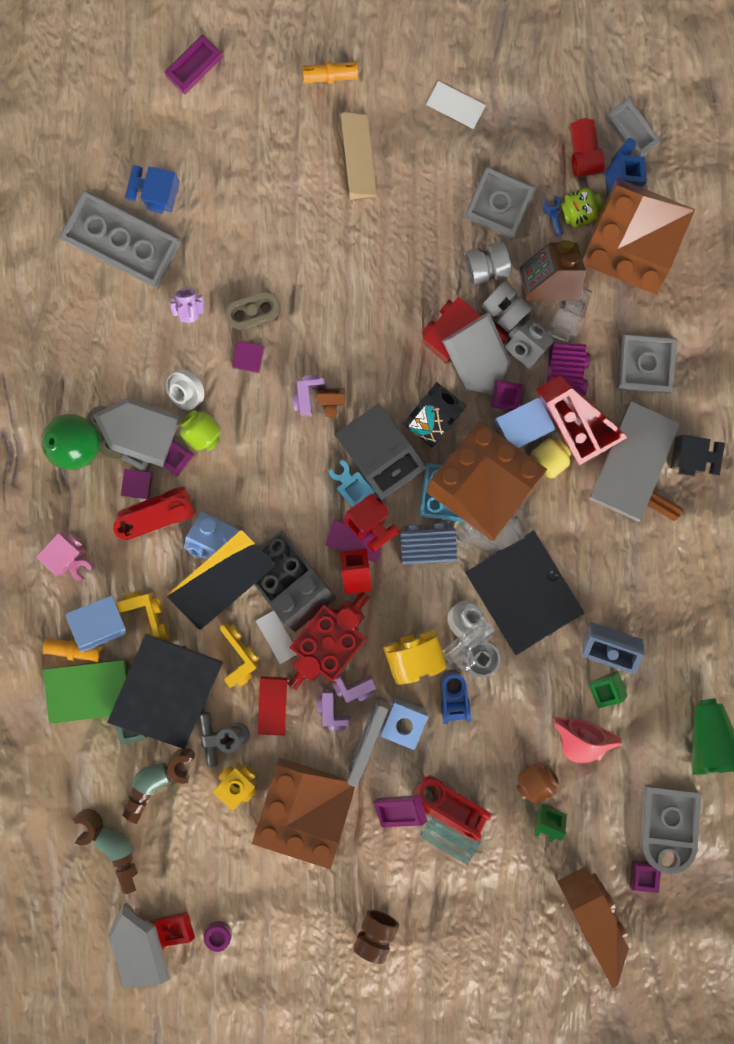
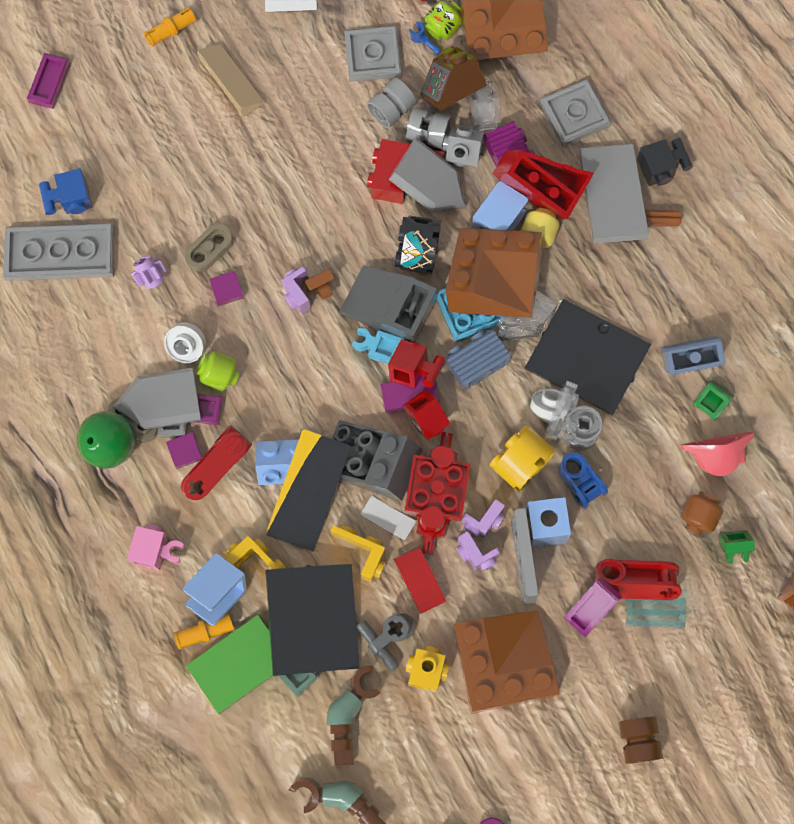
camera: 30 degrees left, 15 degrees down
(506, 395) = (469, 198): magenta tile -> none

